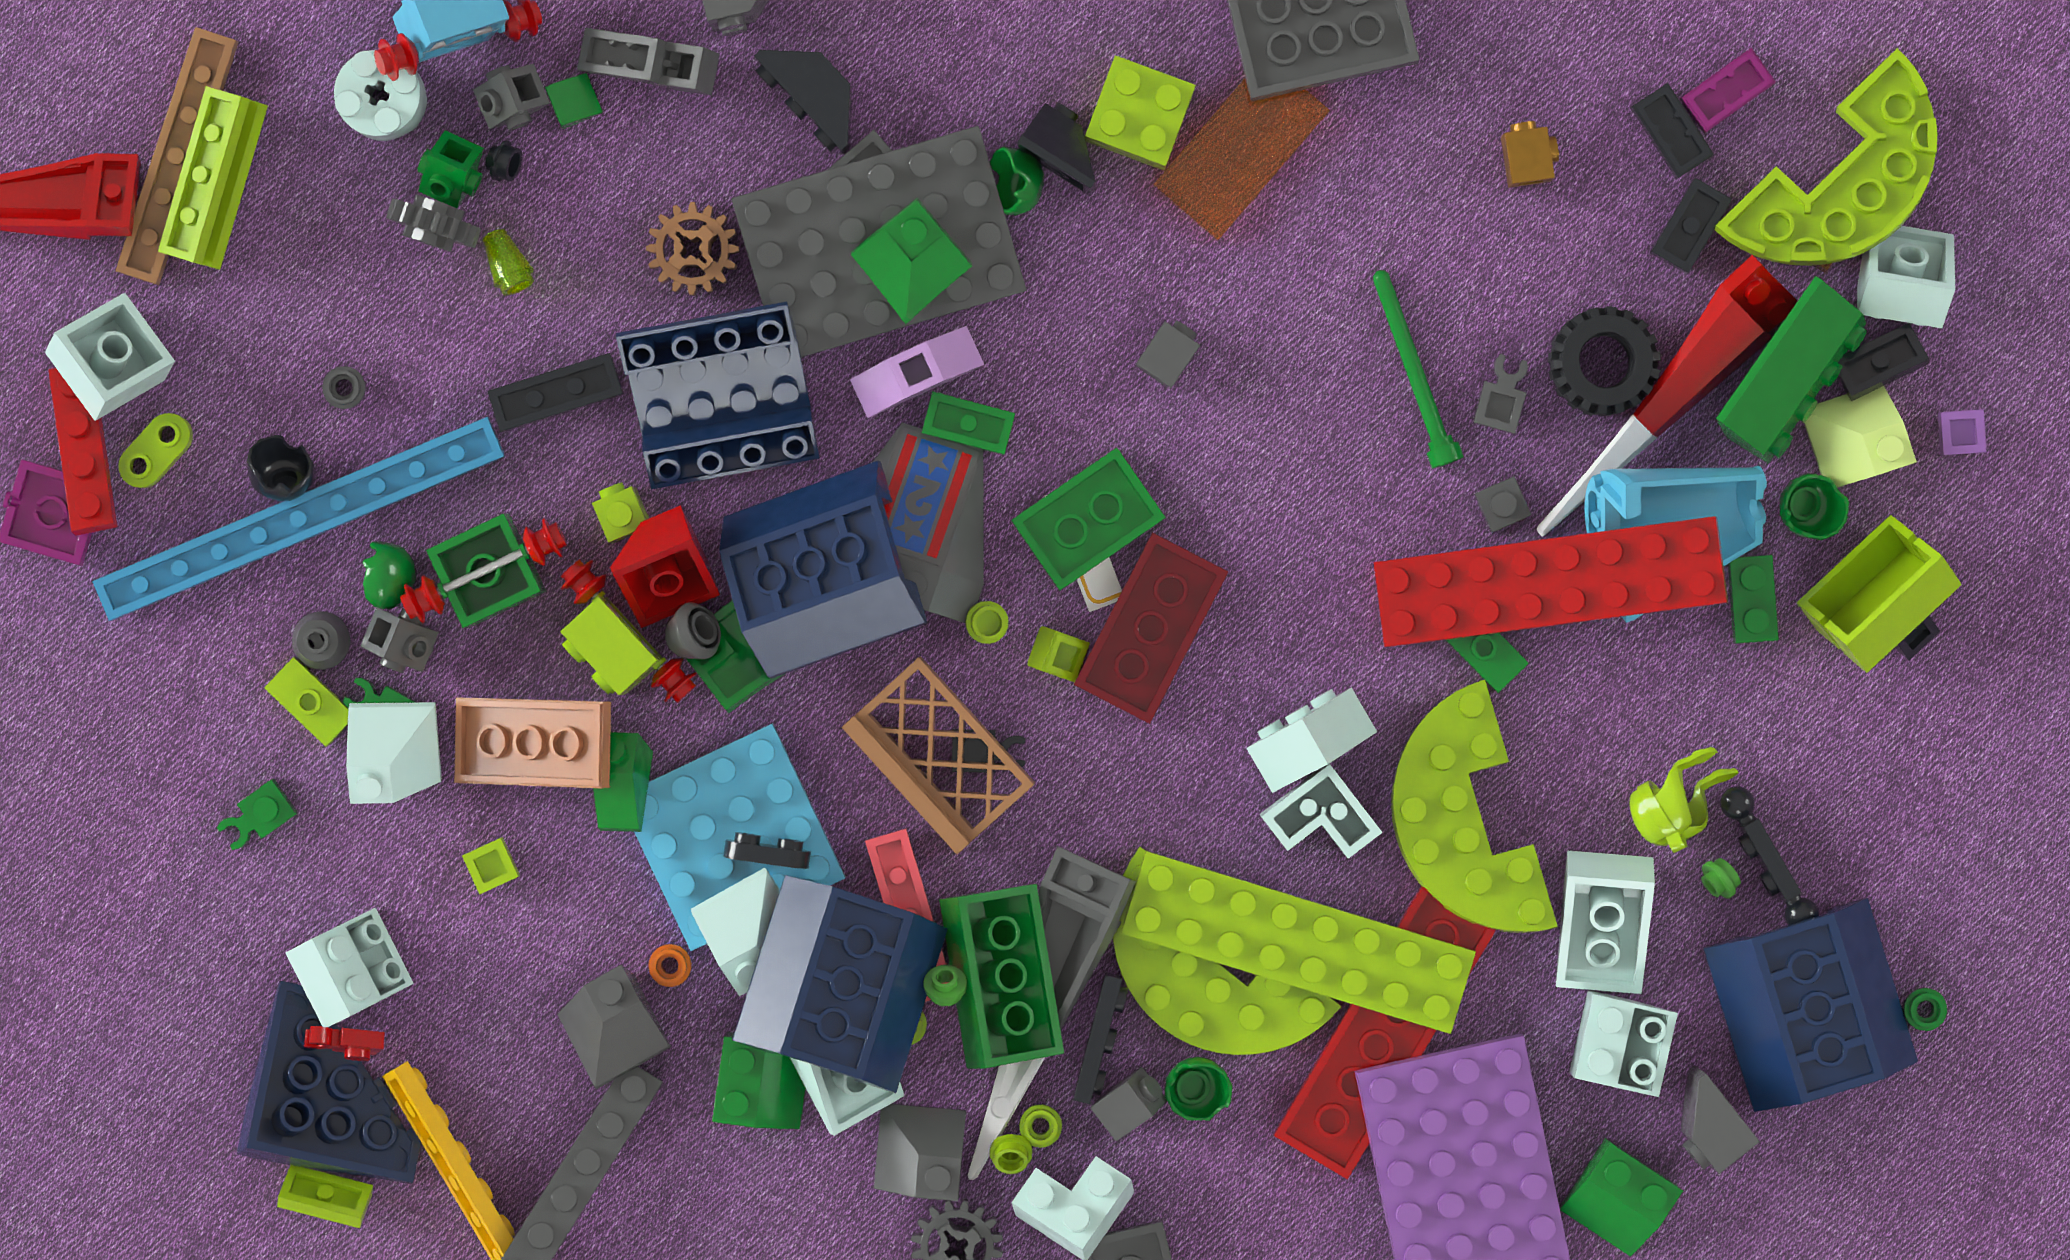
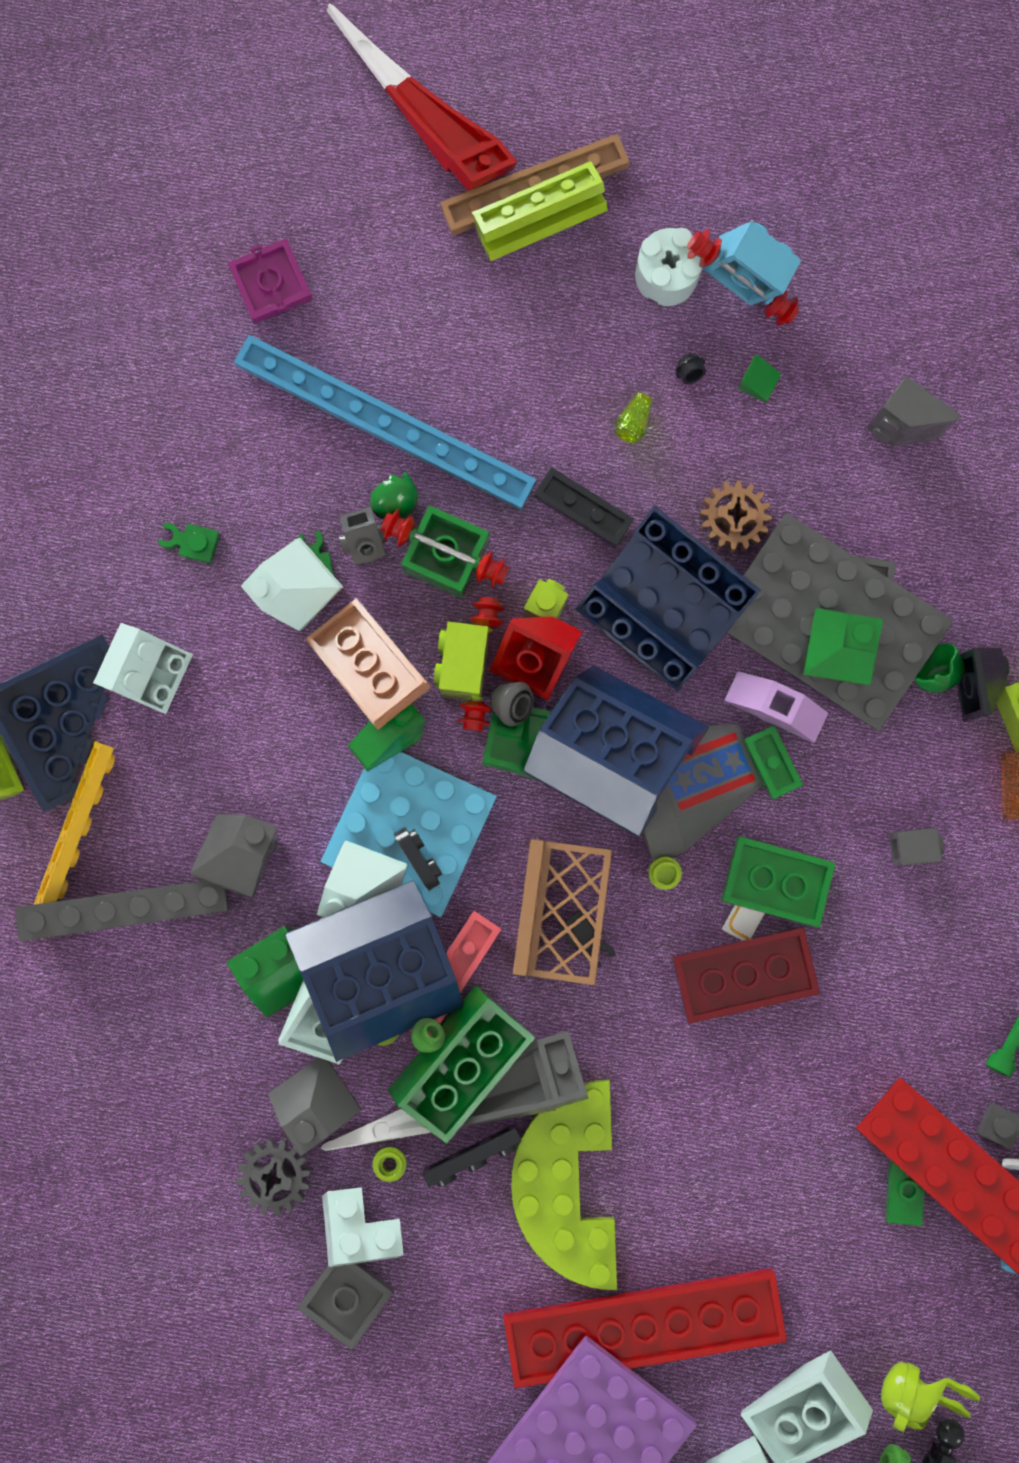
camera: 55 degrees right, 5 degrees down
(82, 461) = (321, 266): red plate -> none
(109, 356) = (388, 235): light aqua brick -> none
(155, 451) = (354, 313): lime plate -> none
(279, 469) = (404, 385): black hair -> none
(309, 701) = (282, 515): lime plate -> none
(326, 652) = (319, 499): dark grey cone -> none
(331, 382) = (479, 377): dark grey plate -> none
(354, 1042) = (99, 708): red plate -> none
(433, 223) = (623, 353): dark grey gear -> none
(444, 175) = (661, 340): green brick -> none
(491, 865) = (273, 700): lime plate -> none
(511, 96) = (733, 339): dark grey brick -> none
(648, 61) = (822, 402): dark grey slope -> none
(656, 965) = (291, 853): orange plate -> none
(813, 90) = (887, 508): black slope -> none
(1010, 1153) = (357, 1161): lime plate -> none
(1058, 654) = (681, 931): lime slope -> none
(1129, 1103) = (448, 1210): dark grey brick -> none
(1198, 1089) = (493, 1245): green hair -> none
(1298, 942) = (635, 1233): lime plate -> none
(1310, 738) = (767, 1134): light aqua brick -> none
(1325, 802) = (732, 1173): light aqua brick -> none
(1442, 824) = (780, 1262): lime plate -> none

